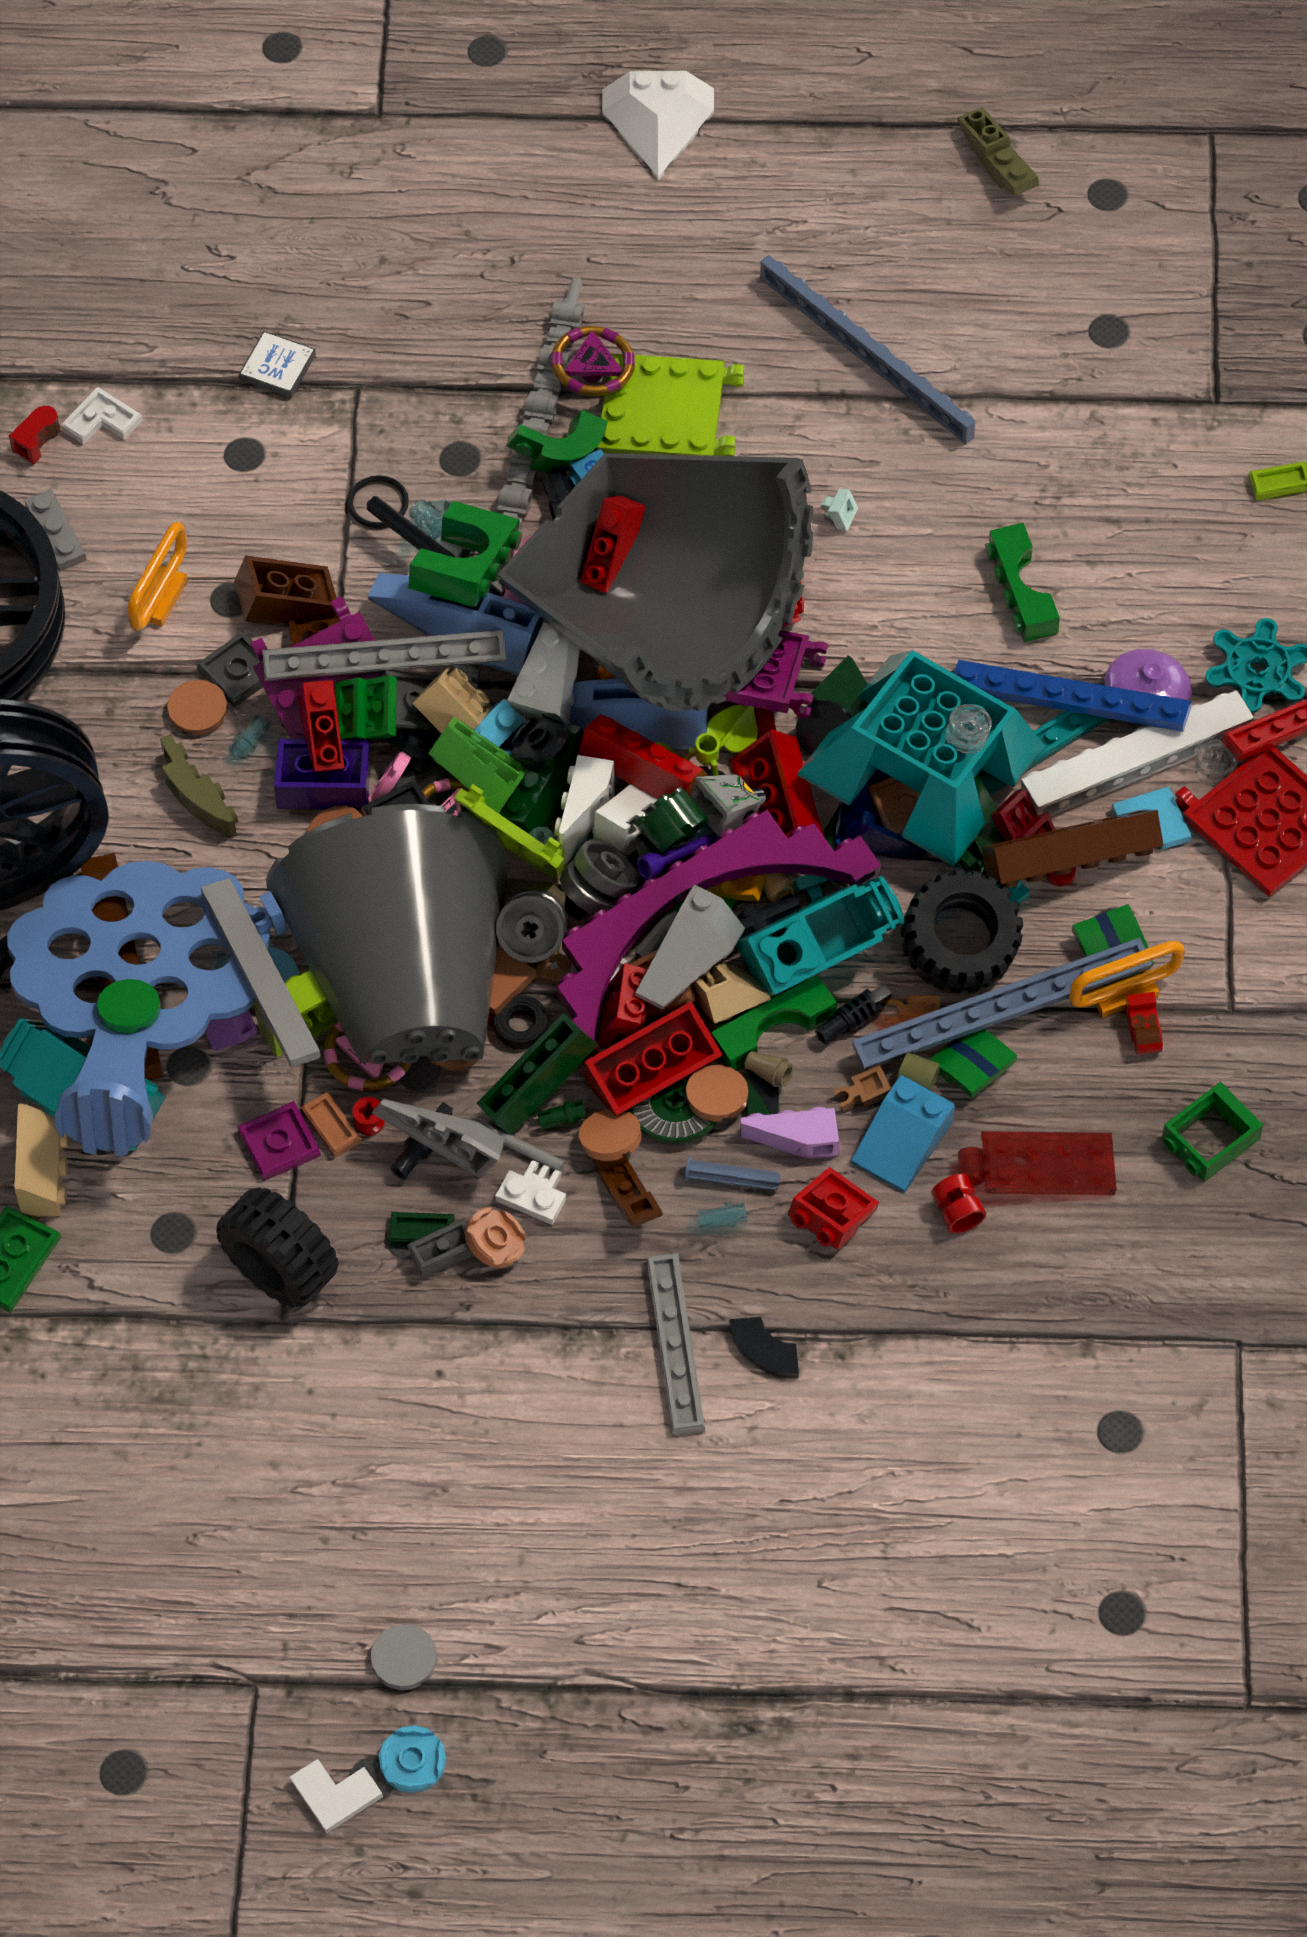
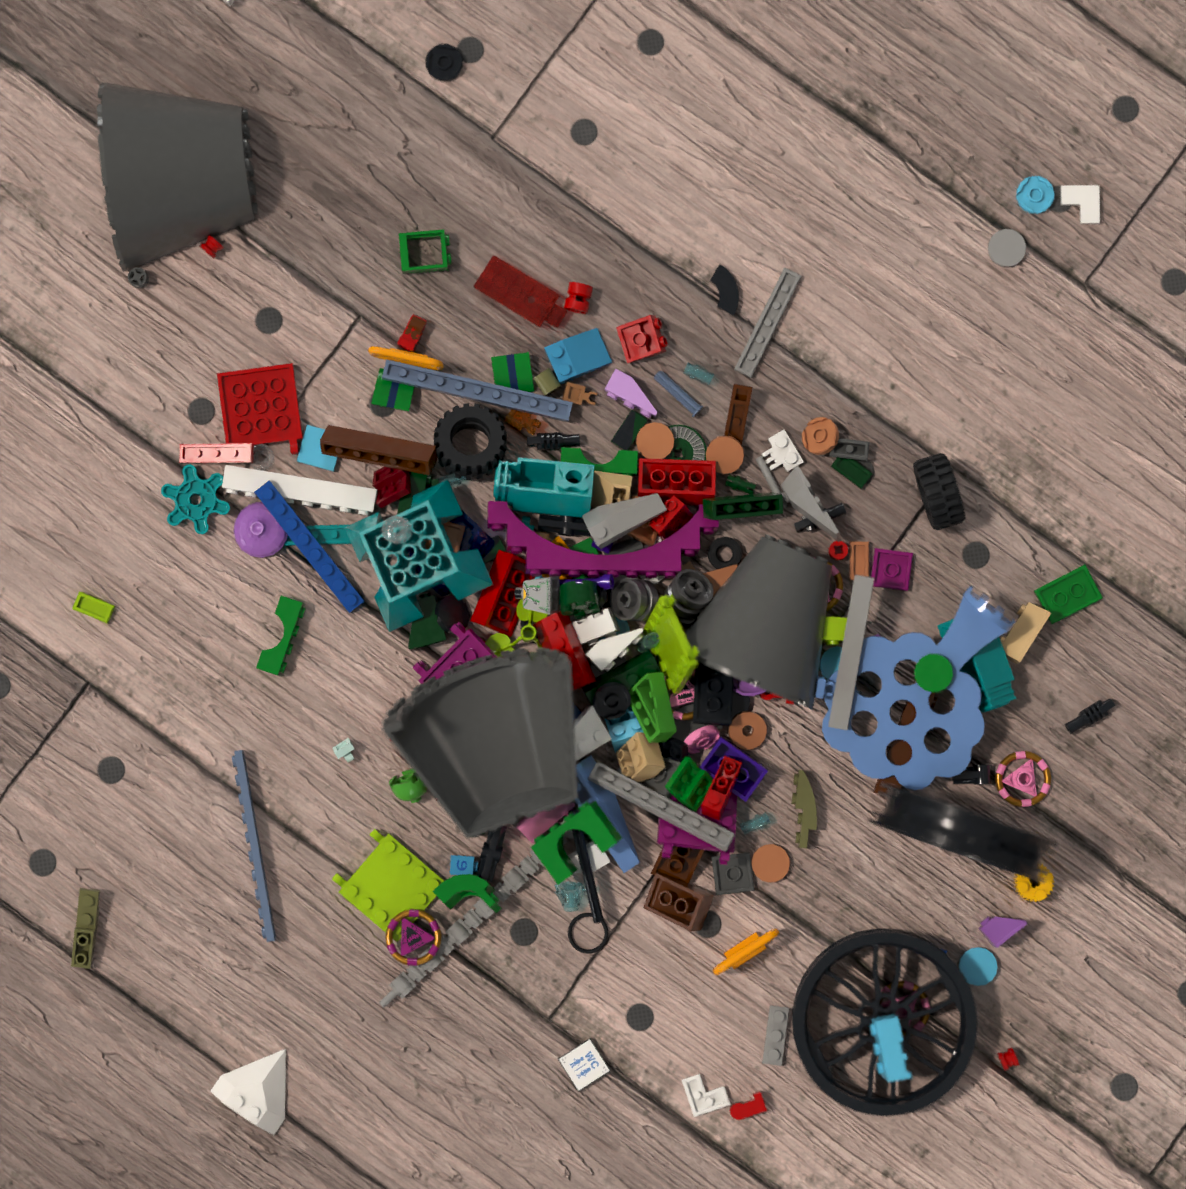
camera: 145 degrees left, 25 degrees up
(612, 540) = (492, 794): red slope -> none
(772, 1069) = (620, 435): dark tan cone -> none

